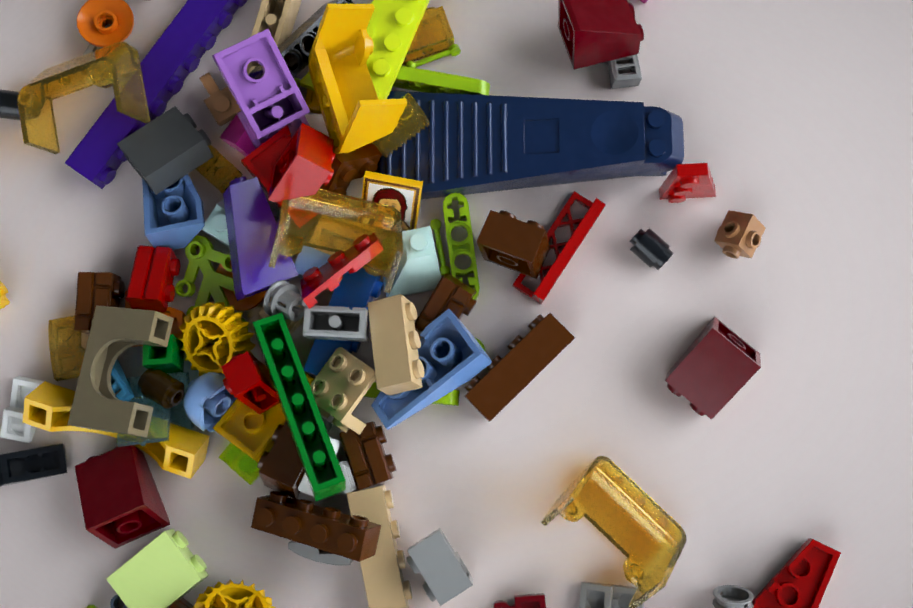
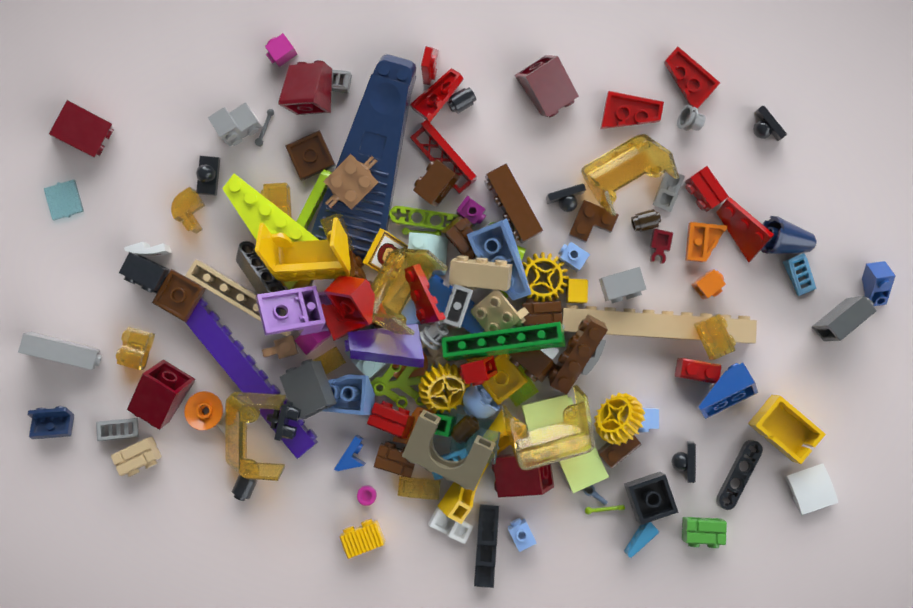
camera: 80 degrees left, 5 degrees up
(30, 518) = (521, 534): none -> light blue brick
(40, 277) = (366, 495): none -> dark pink tile
(84, 238) = (348, 460): none -> blue slope
(108, 123) = (283, 429): none -> black hips
(169, 523) = (555, 441): none -> clear yellow windscreen
(212, 511) = (545, 411): none -> yellowish green brick
(408, 458) = (548, 285): none -> yellow gear
(414, 500) = (577, 291): none -> yellow panel
(453, 50) = (292, 186): lime hinge -> none
(466, 479) = (573, 256): none -> light blue brick
(478, 121) = (351, 181): none -> medium nougat plate
(493, 297) = (463, 211): none -> magenta brick
(504, 60) = (310, 155): none -> reddish brown plate
(535, 487) = (589, 216): none -> reddish brown plate
(550, 446) = (566, 197): none -> black tile
(553, 578) = (646, 220): none -> dark brown brick
(646, 210) = (434, 98): none -> red wing
(716, 505) = (630, 110): none -> red wing
(739, 234) = (469, 42): medium nougat brick -> none

